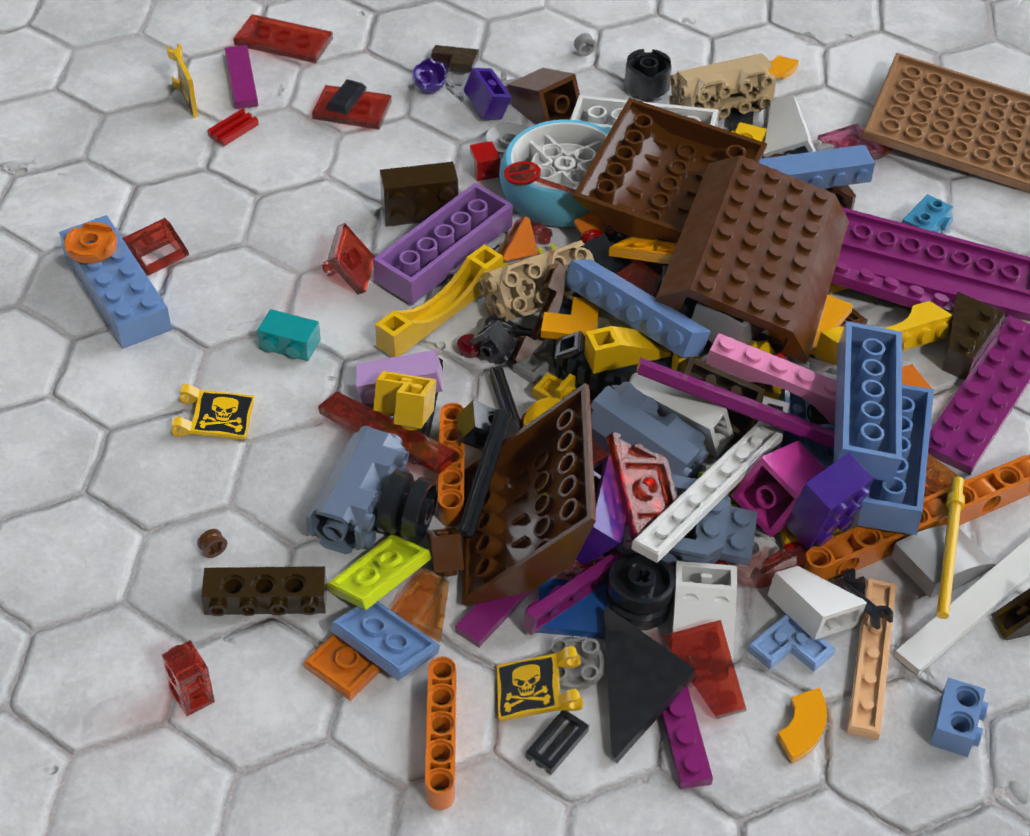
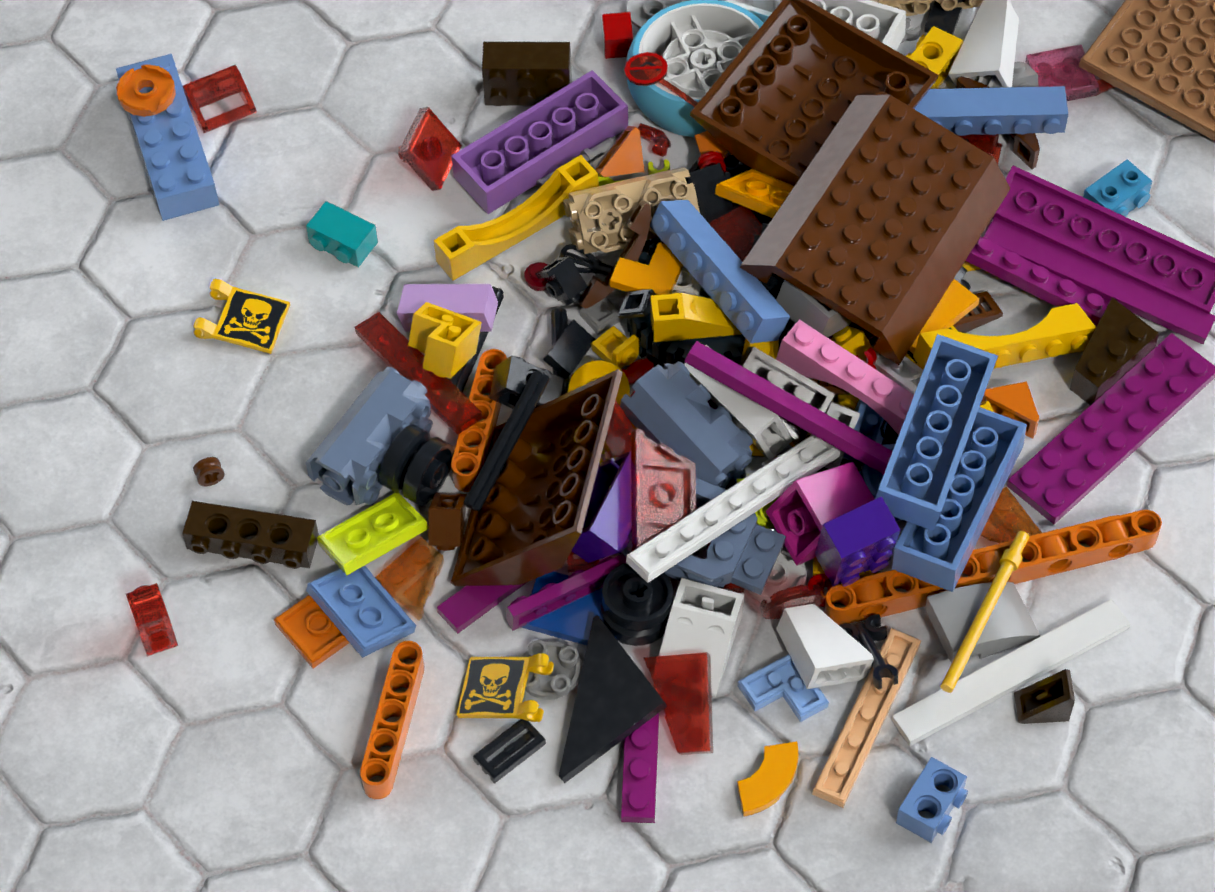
camera: 15 degrees right, 10 degrees up
(515, 395) = (569, 349): none -> black tile

